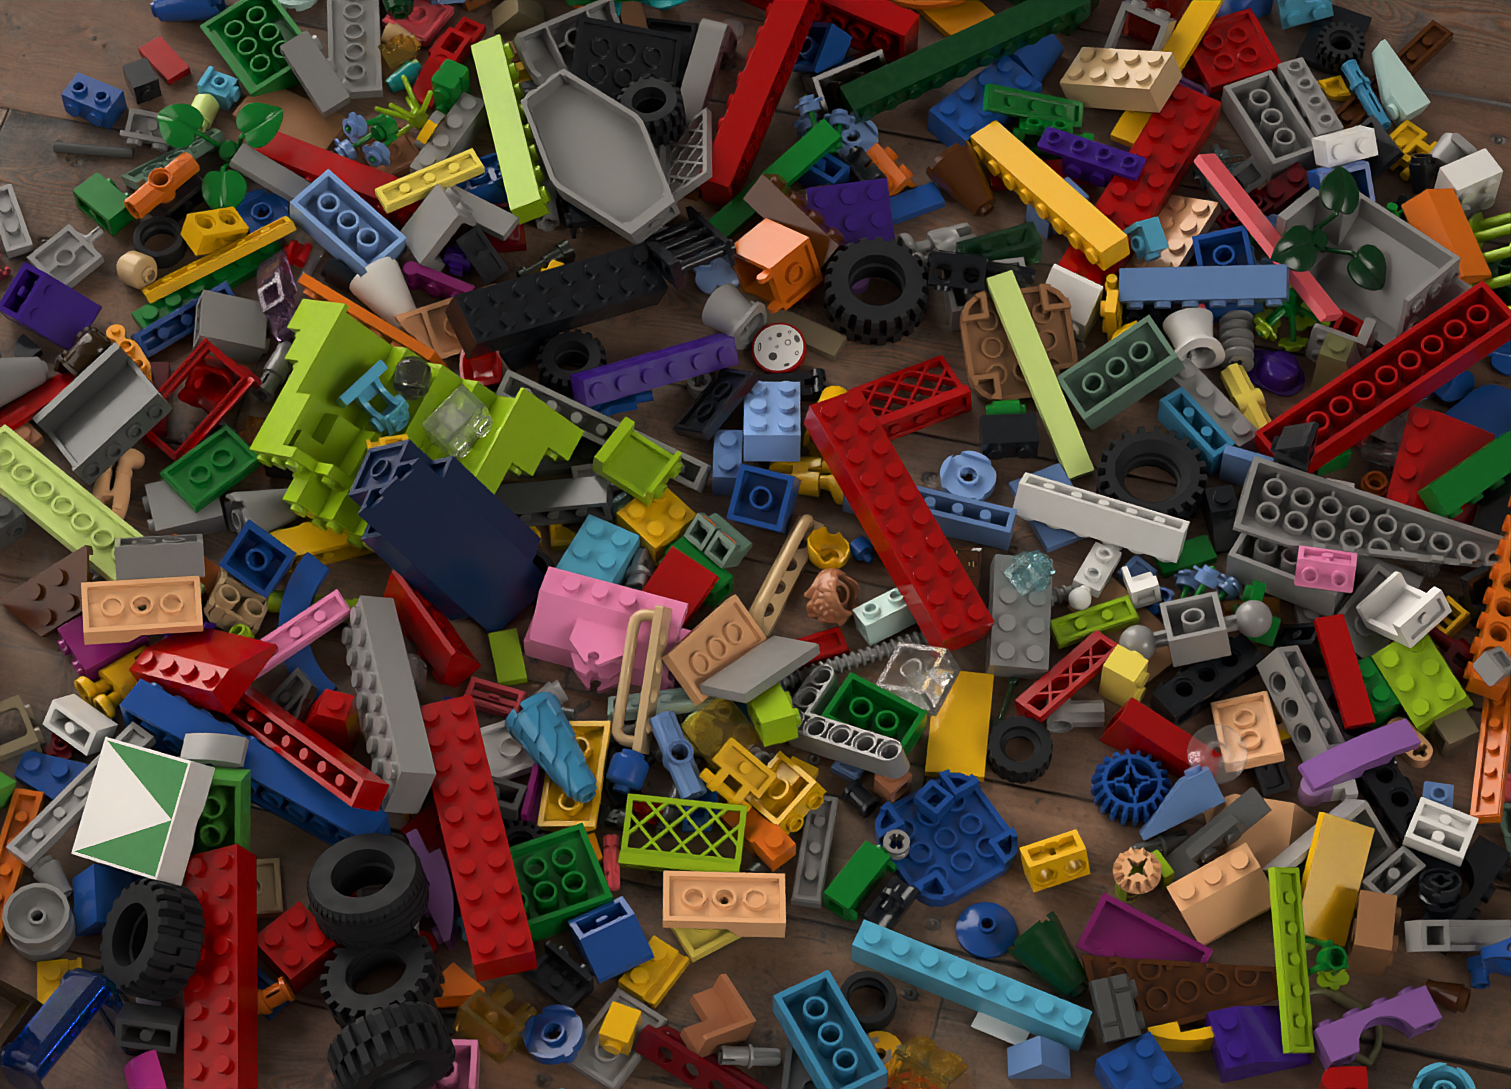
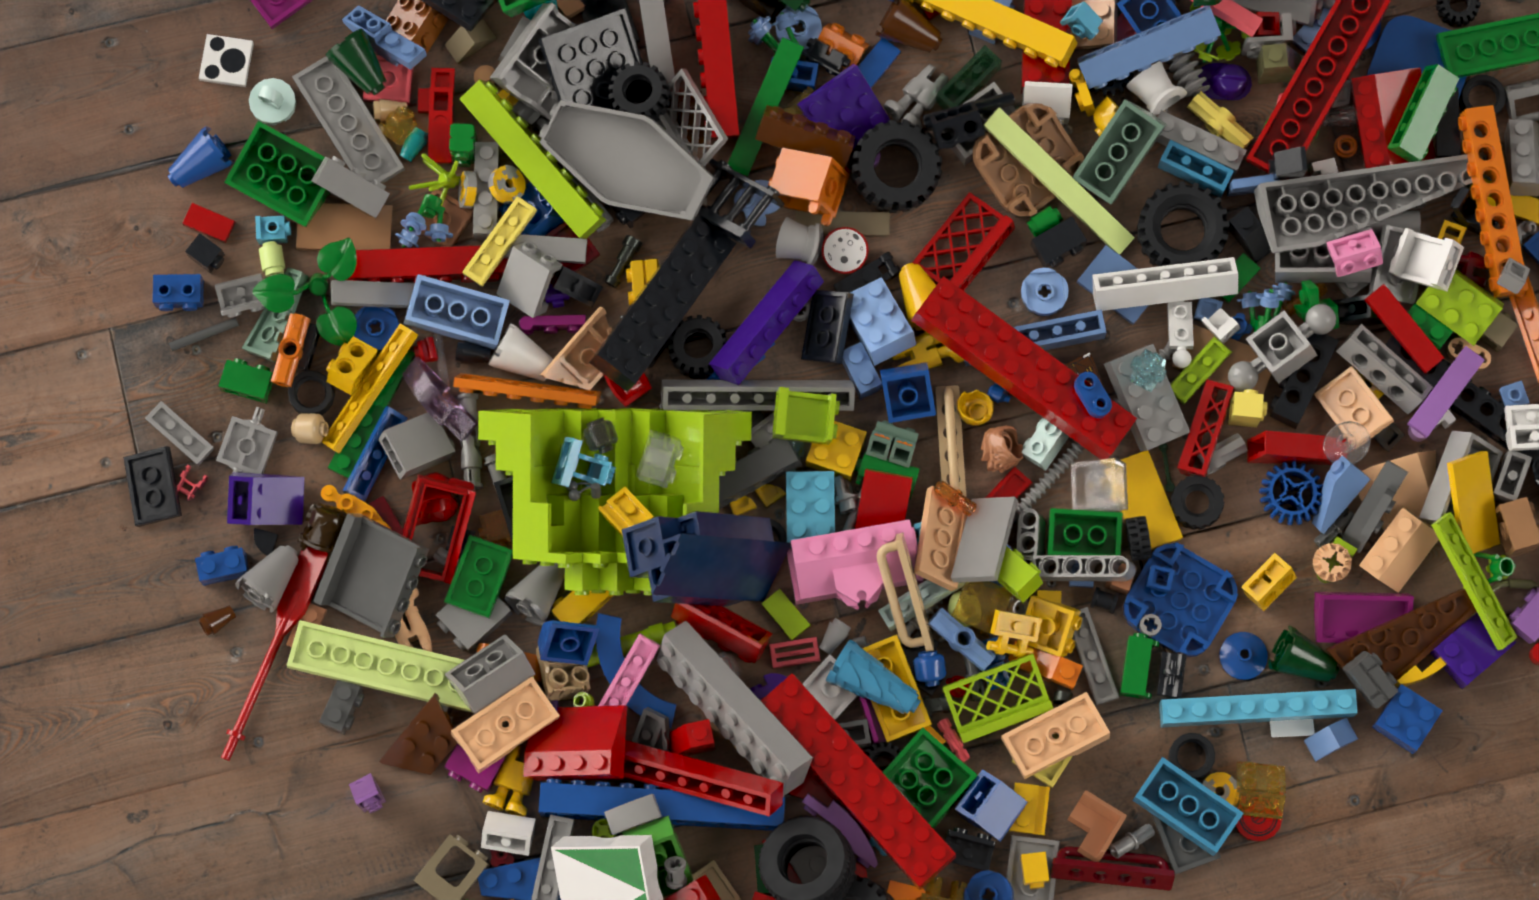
camera: 25 degrees left, 20 degrees up
(221, 829) = (675, 872): none -> light grey bush
(354, 412) = (574, 494): none -> dark grey piece
(477, 131) = (514, 179): none -> yellow piece
(752, 616) = (955, 498): none -> clear orange axle
(930, 745) = (1138, 538): none -> black tyre
(956, 567) = (1090, 395): none -> blue plate

